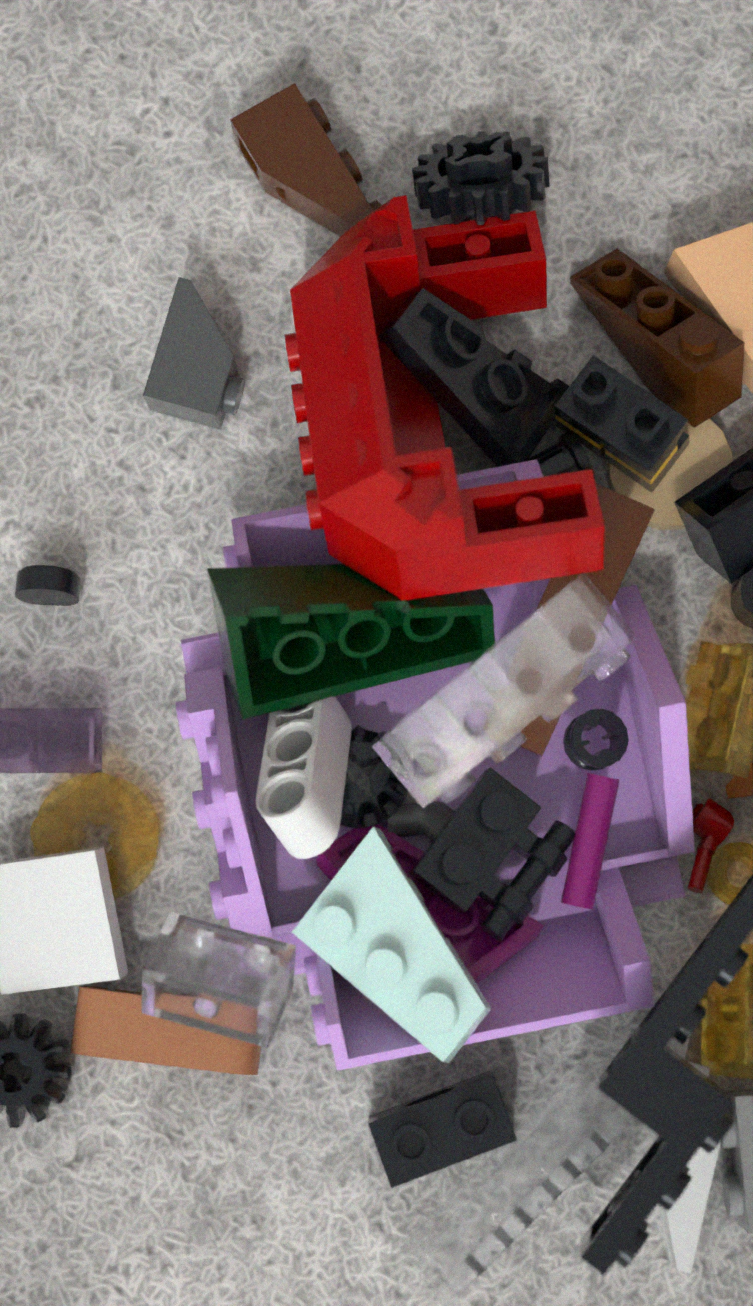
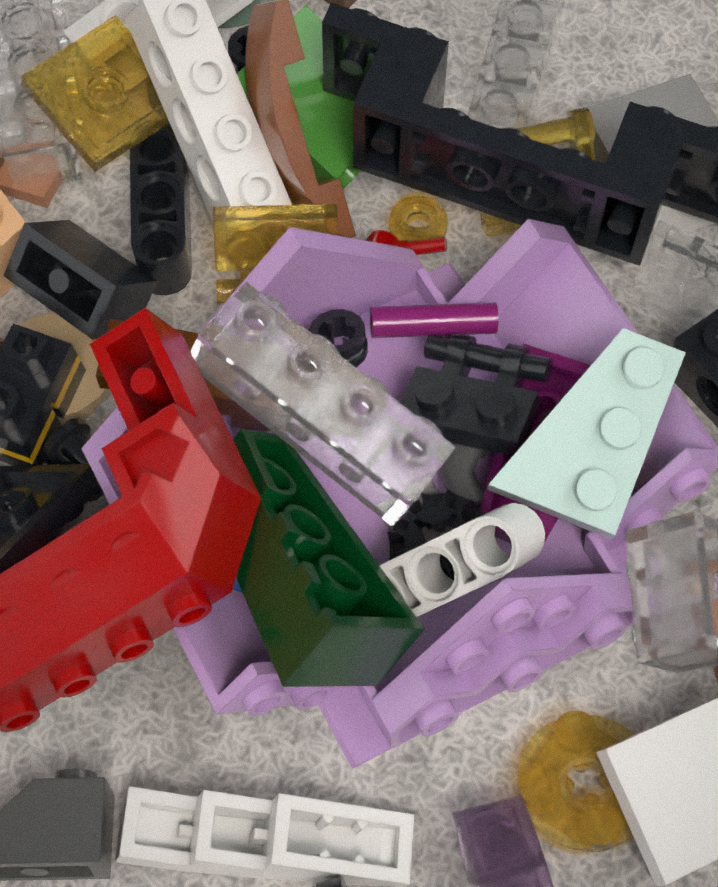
camera: 105 degrees left, 20 degrees down
(134, 545) = (265, 838): none -> white slope

